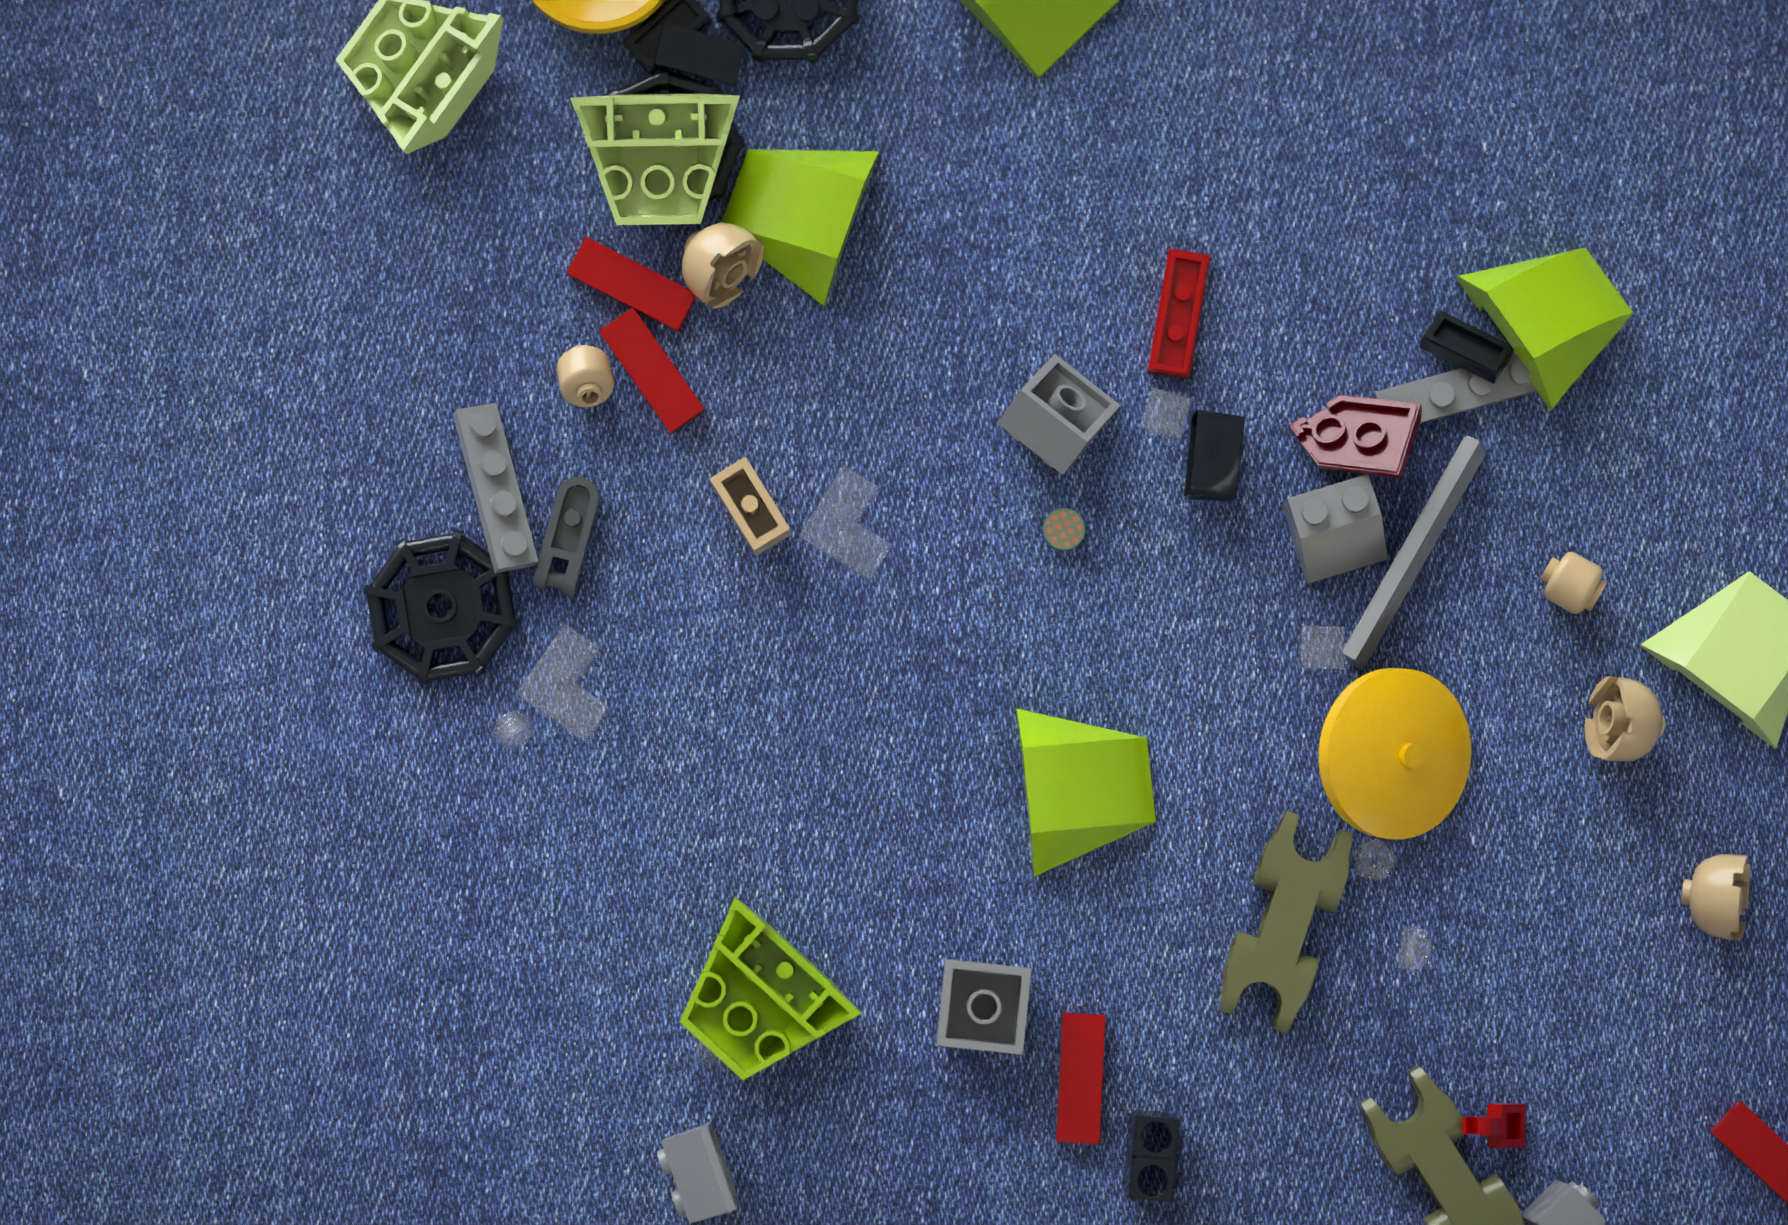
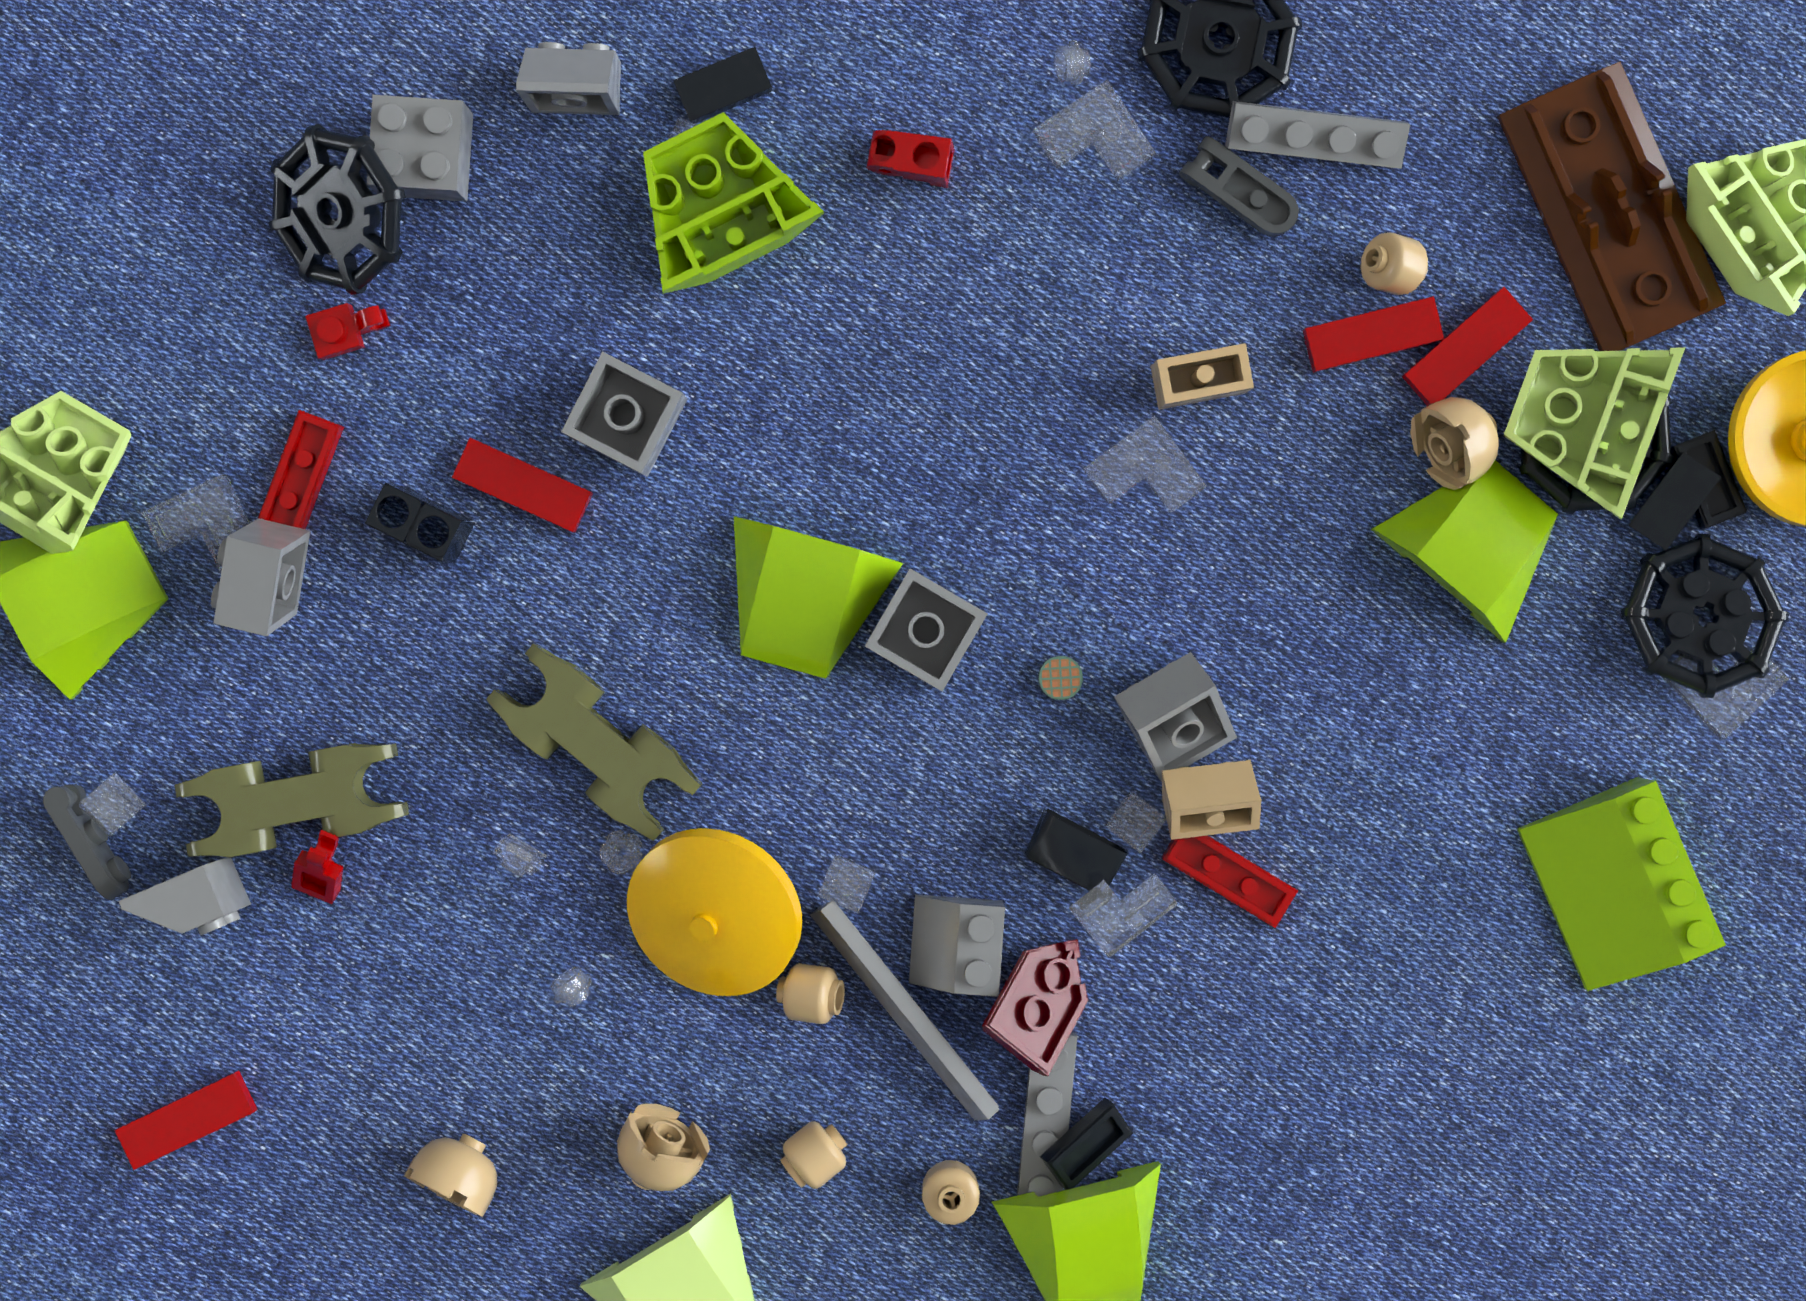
camera: 115 degrees right, 5 degrees up
(460, 205) = (1611, 209): none -> reddish brown hinge
(650, 1036) = (723, 85): none -> black tile
(651, 841) = (911, 156): none -> red leg
(1070, 663) = (926, 629): none -> light grey brick
(1120, 355) = (1211, 799): none -> tan brick
(1259, 394) = (1118, 922): none -> clear tile
(1432, 641) = (811, 993): none -> tan head
(1512, 858) = (571, 987): none -> clear plate
(1570, 453) = (964, 1196): none -> tan head

